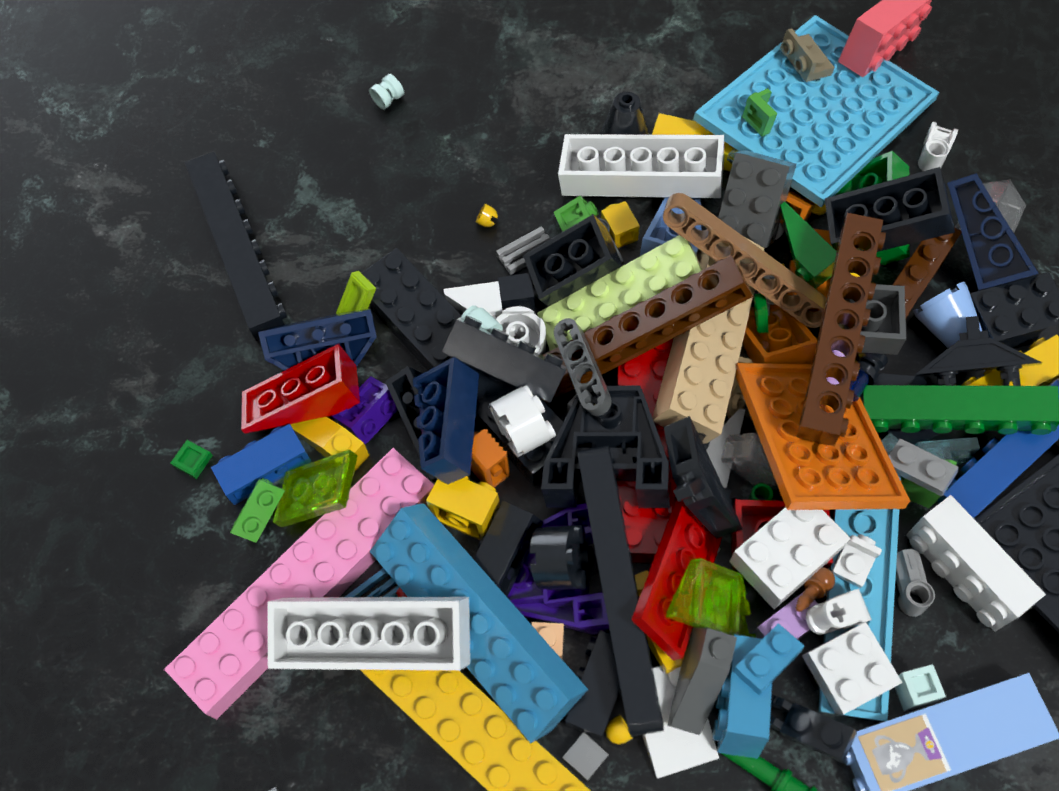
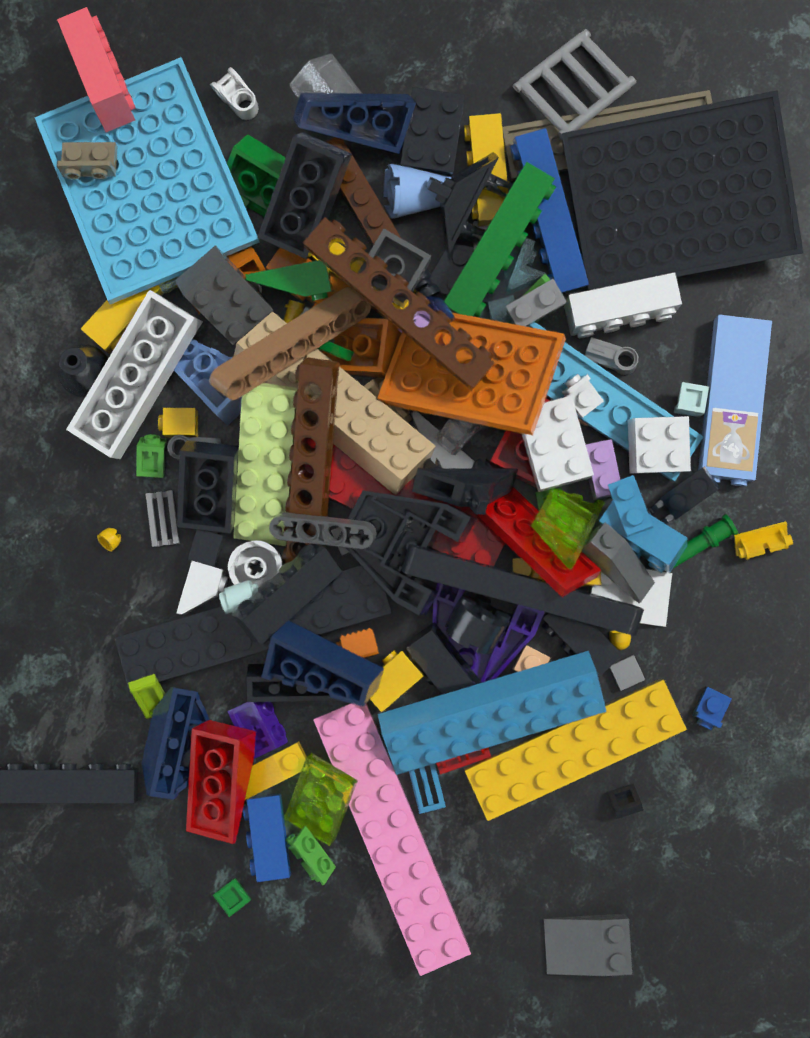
camera: 70 degrees left, 20 degrees up
(369, 633) = (474, 802): white brick -> none
(521, 420) = (351, 603): white brick -> none
(759, 112) = (142, 246): bright green bracket -> none
(762, 490) = (490, 443): green hinge -> none
(815, 588) = (590, 437): dark orange bar -> none
(838, 613) = (616, 431): white piece -> none

